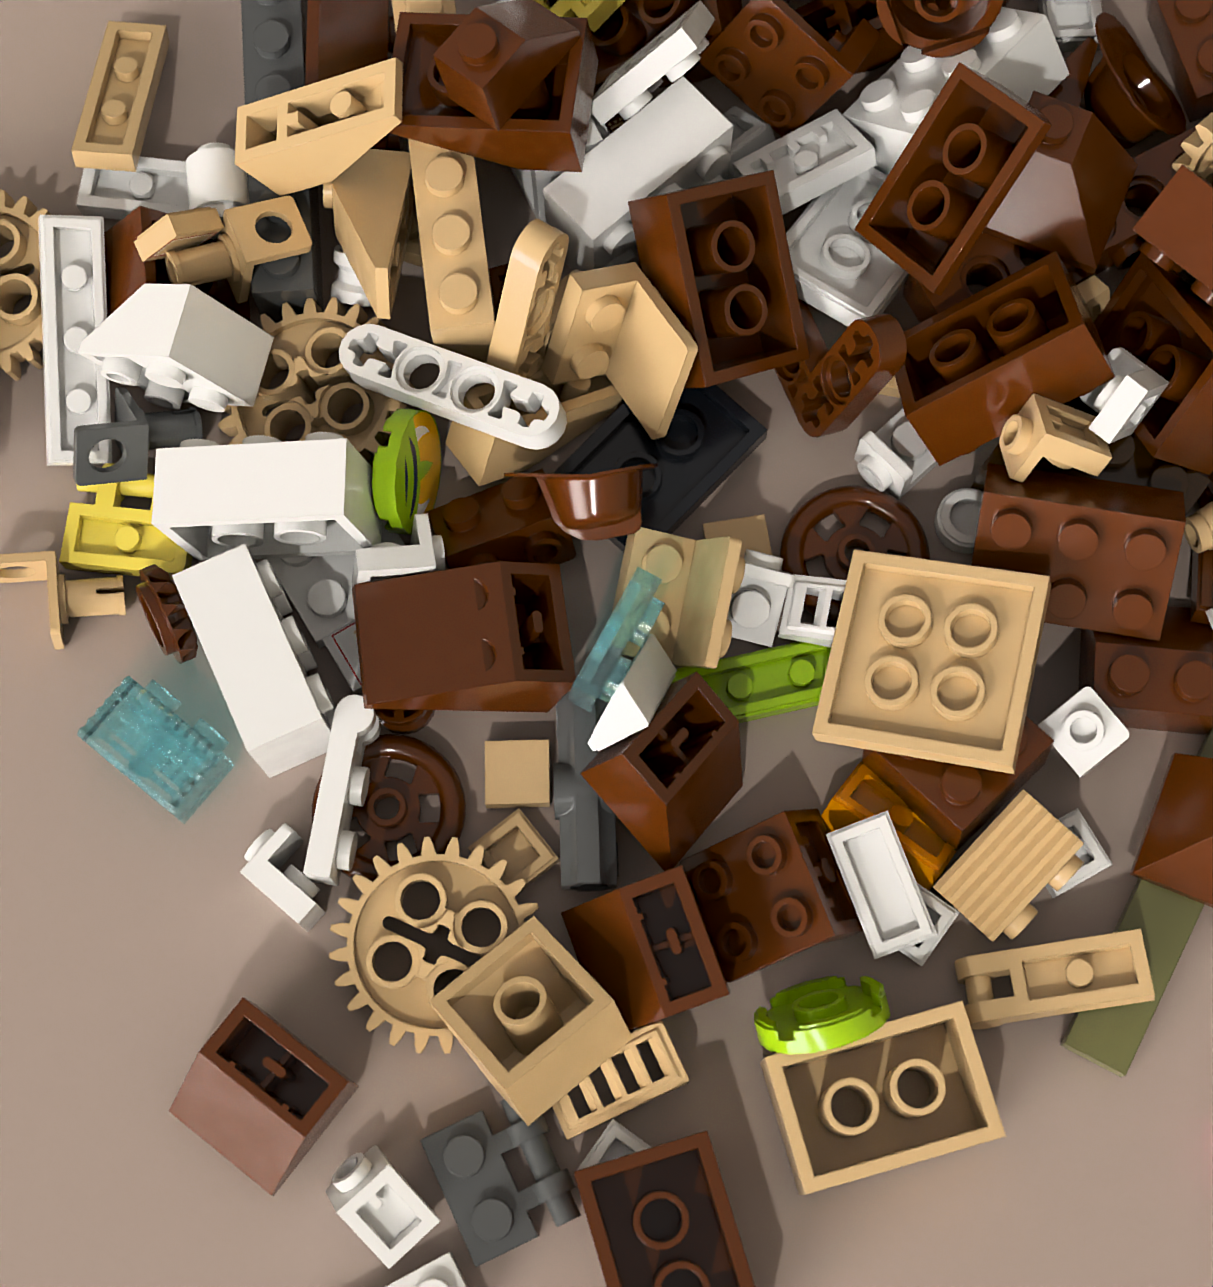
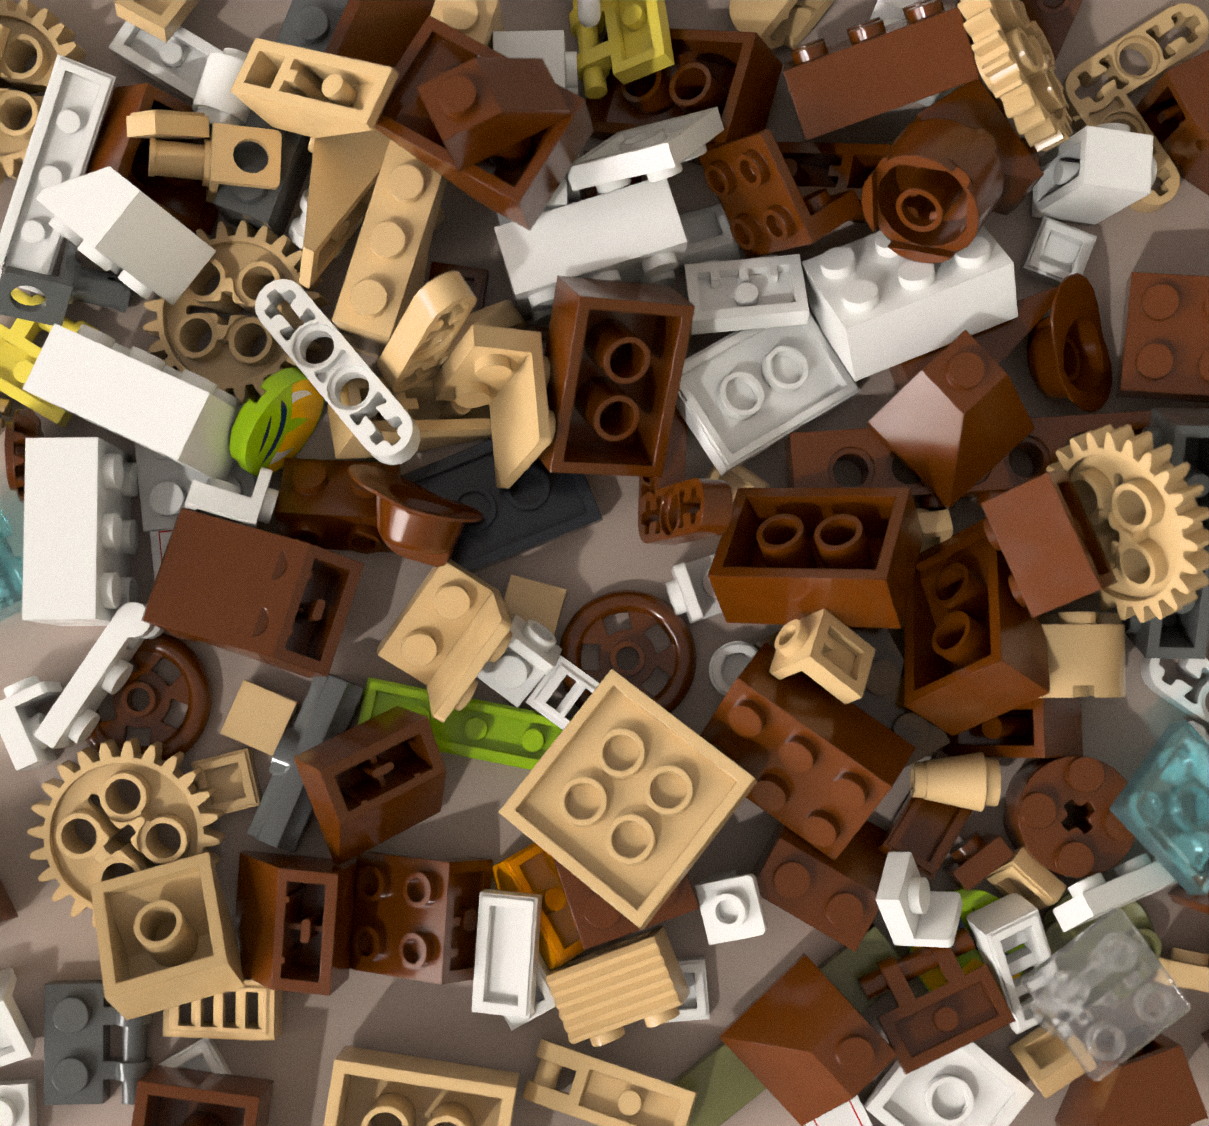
camera: 25 degrees right, 10 degrees up
(629, 622) = (352, 679): clear light blue plate -> none
(636, 696) = (369, 713): white slope -> none
(821, 1015) = (402, 1042): lime tile -> none
(952, 176) = (851, 383): reddish brown slope -> none
(1125, 398) = (904, 647): white bracket -> none

